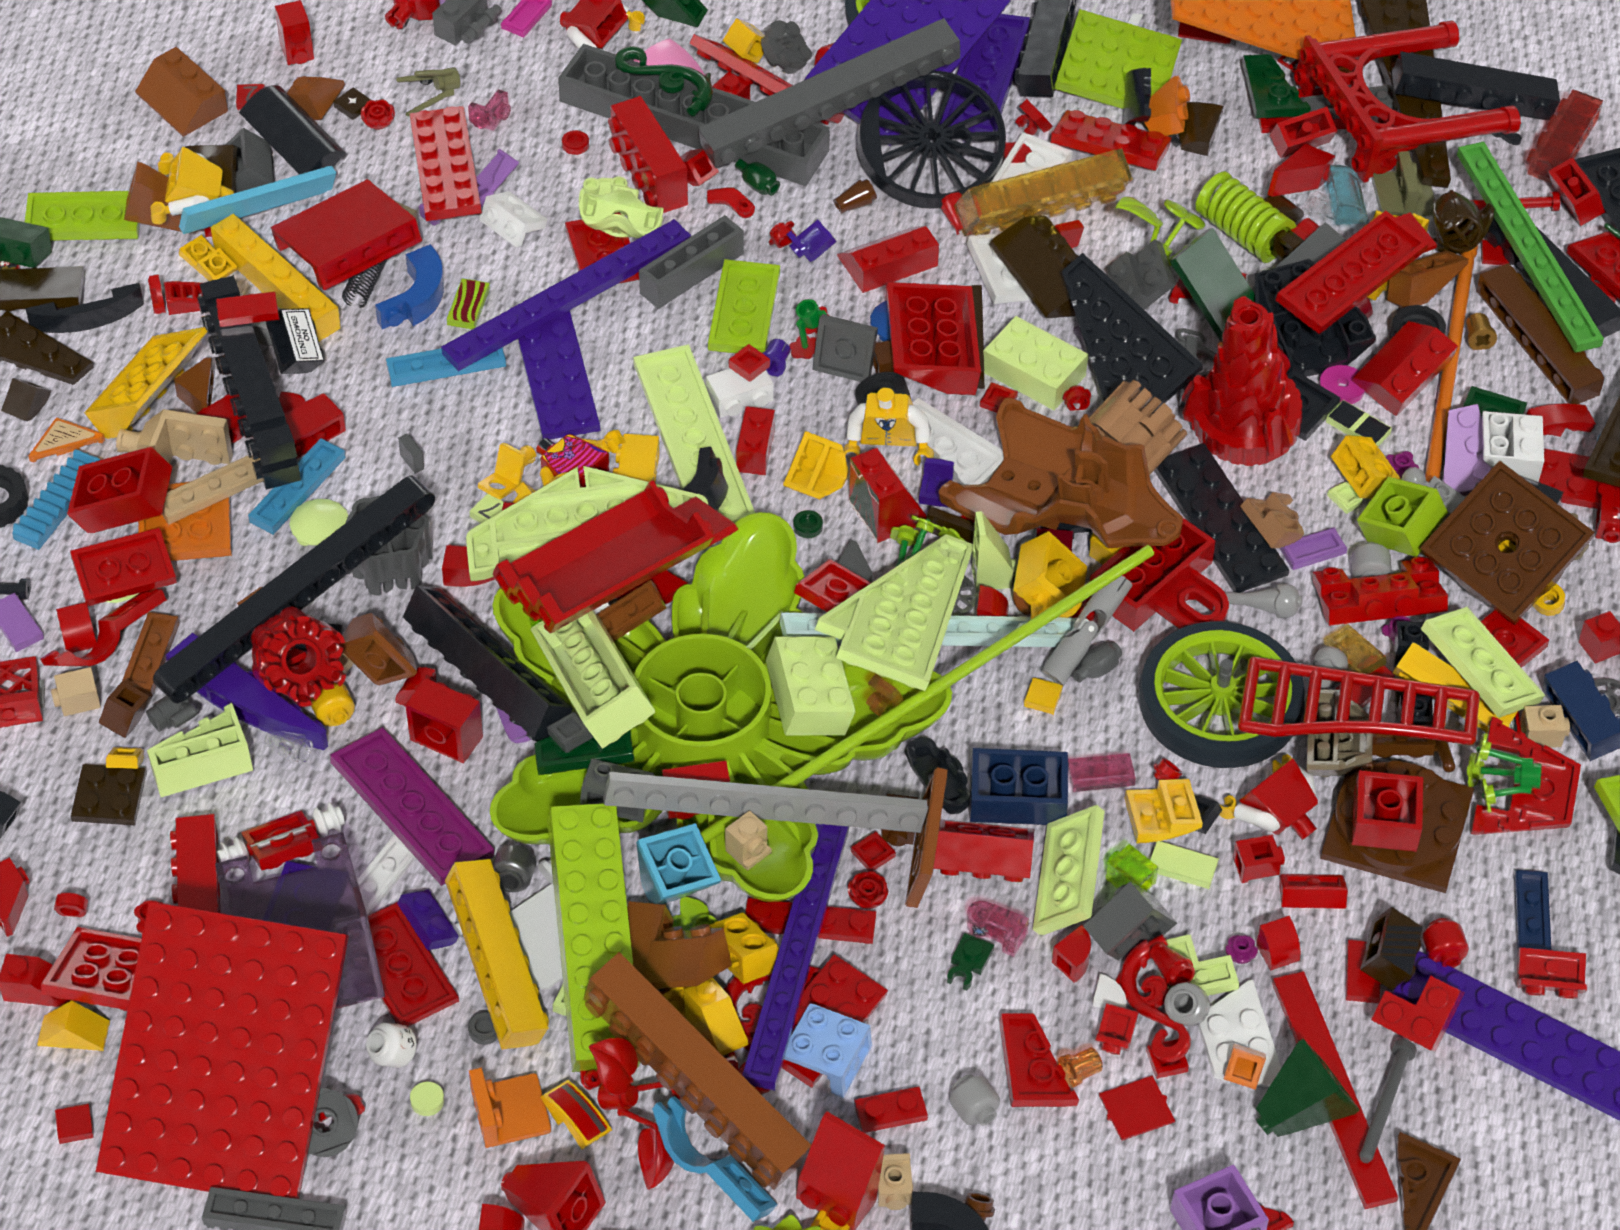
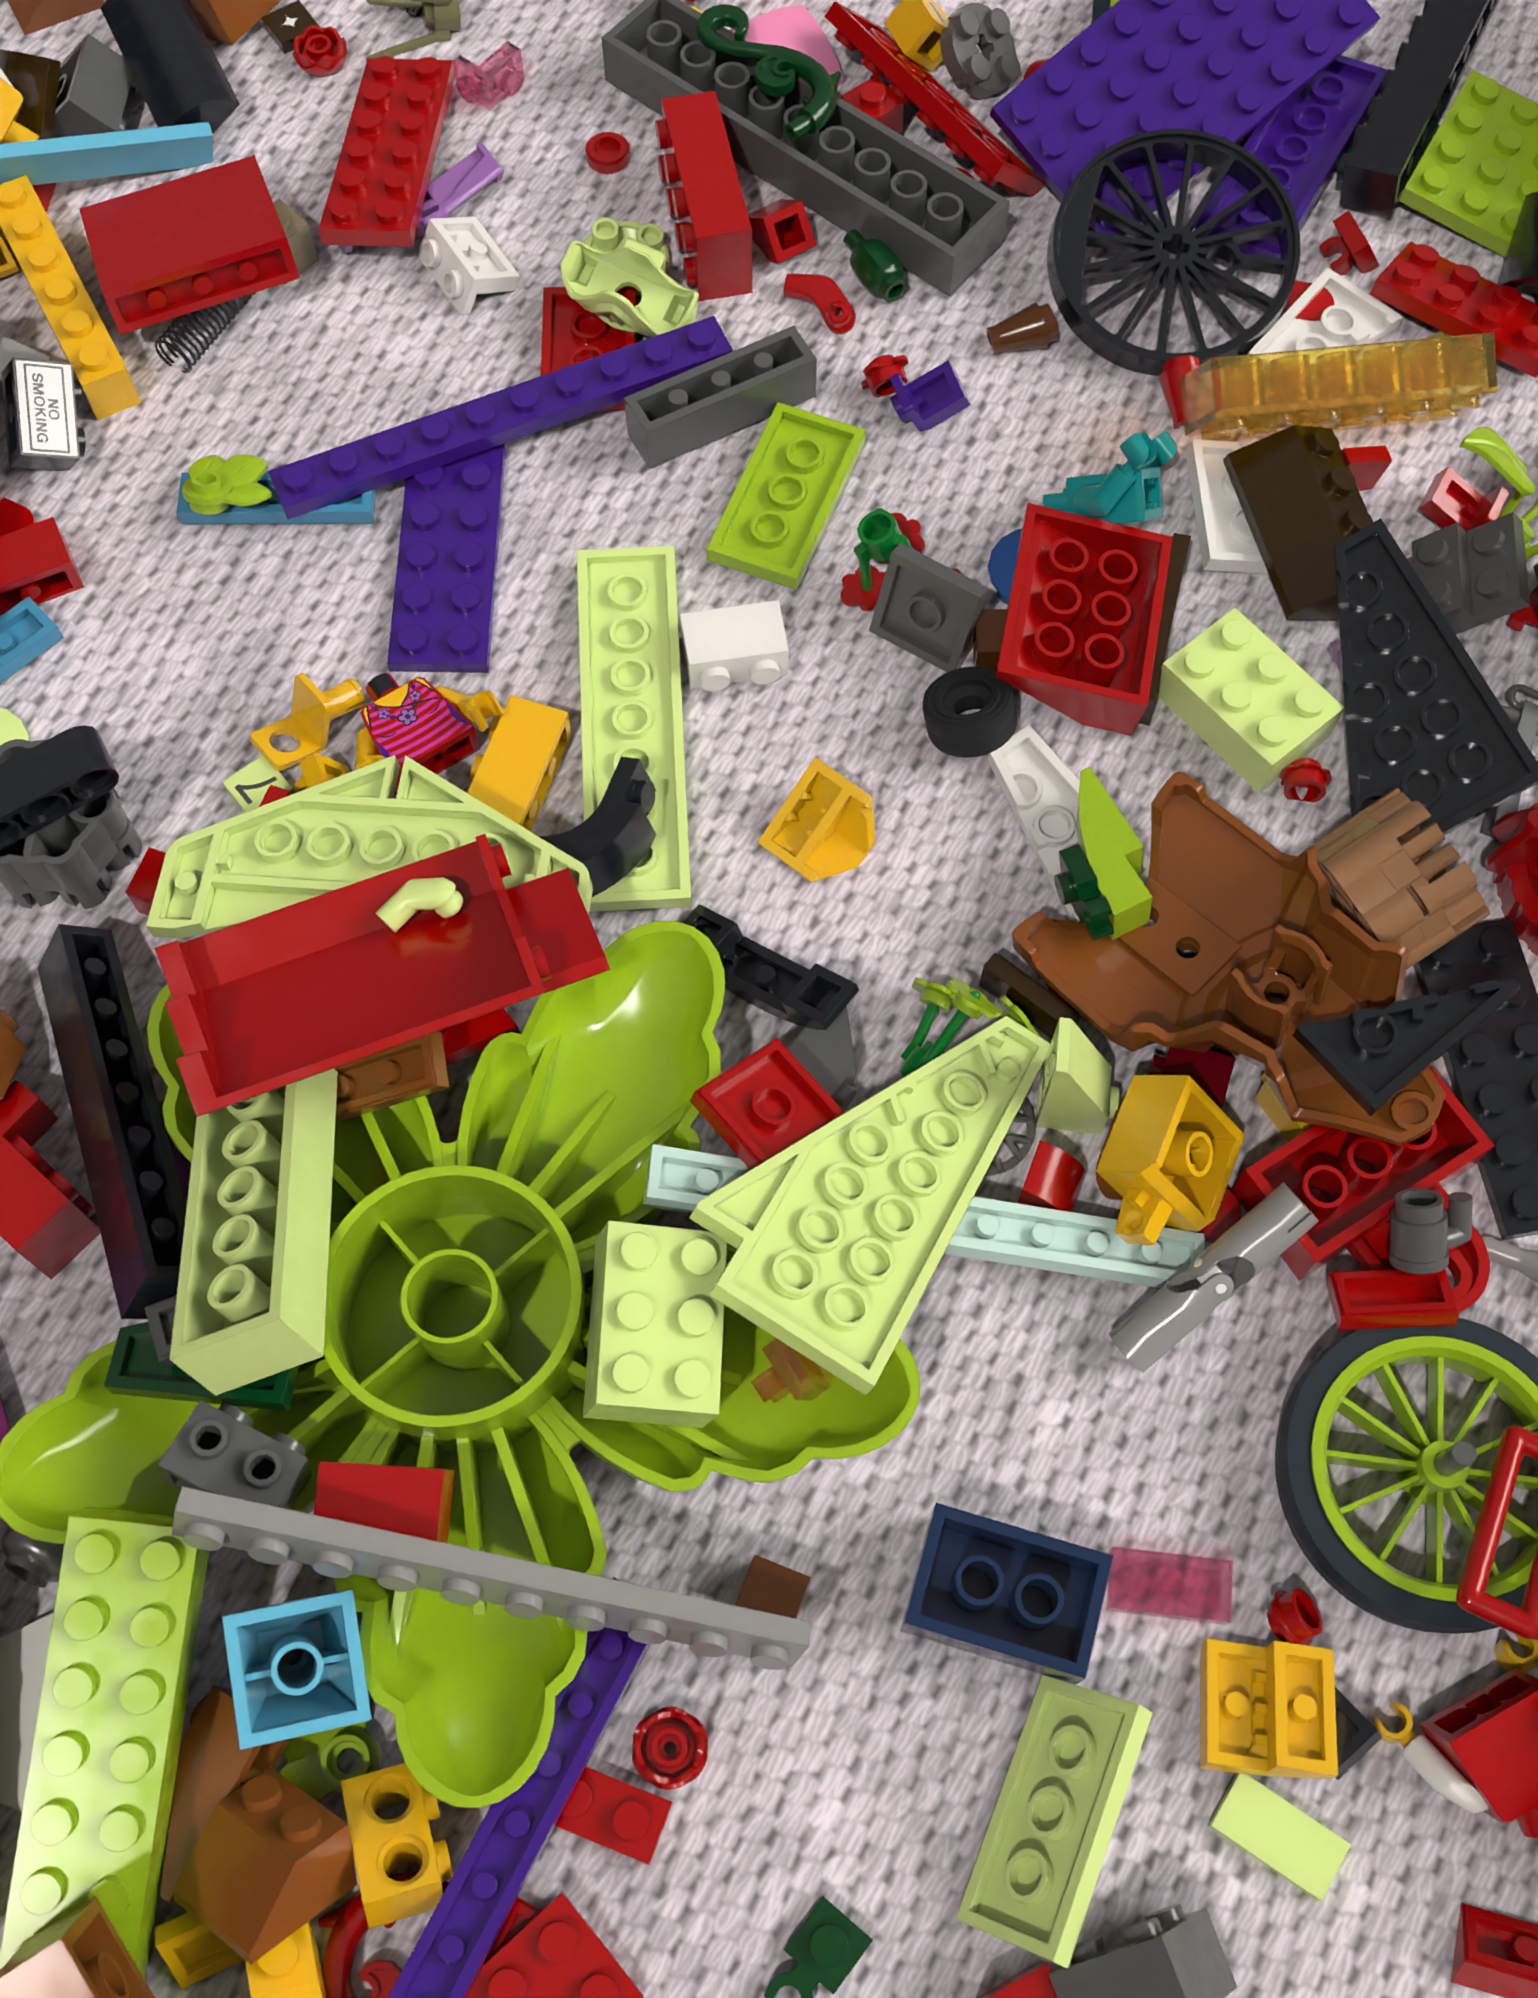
camera: 15 degrees right, 15 degrees up
(411, 453) = (162, 654): dark grey tile -> none
(412, 359) = (222, 482): none -> lime plate
(422, 297) = (280, 371): blue arch -> none
(468, 303) = (350, 399): tile -> none
(624, 519) = (420, 895): none -> yellowish green arm
(747, 840) = (440, 1651): tan brick -> none
(749, 363) = (755, 607): red plate -> none
(755, 440) = (731, 751): red brick -> none
(777, 356) = (809, 598): dark purple bush -> none
(808, 524) = (779, 927): dark green tile -> none
(821, 547) = (771, 980): none -> black slope
(829, 93) = (1025, 139): dark grey brick -> none
(873, 851) = (701, 1671): red tile -> none
(880, 495) = (919, 913): red slope -> none
(889, 421) = (965, 769): torso -> none
(891, 258) = (1042, 449): red slope -> none
(925, 758) = (882, 1560): black piece -> none
(926, 841) = (799, 1686): dark orange tile -> none
(935, 475) = (1019, 894): dark purple bracket -> none
(939, 267) = (1125, 493): none -> teal torso
(947, 680) = (898, 1380): lime piece -> none
(968, 466) = (1079, 887): none -> dark green plate
(981, 450) = (1113, 855): none -> lime slope
(984, 850) = (910, 1710): red slope -> none
(995, 395) = (1168, 751): red tile -> none
(997, 924) = (873, 1879): clear pink leg -> none
(1043, 695) = (1102, 1383): yellow tile -> none
(1098, 661) = (1220, 1339): dark grey plant -> none
(1123, 241) = (1456, 501): none -> red bracket
(1131, 866) = (1174, 1839): clear neon green brick -> none
(1146, 497) = (1387, 1048): none -> black wing
(1180, 619) = (1391, 1299): none -> red tile
(1186, 582) = (1425, 1231): none -> dark grey piece
(1258, 858) = (1457, 1870): red brick -> none

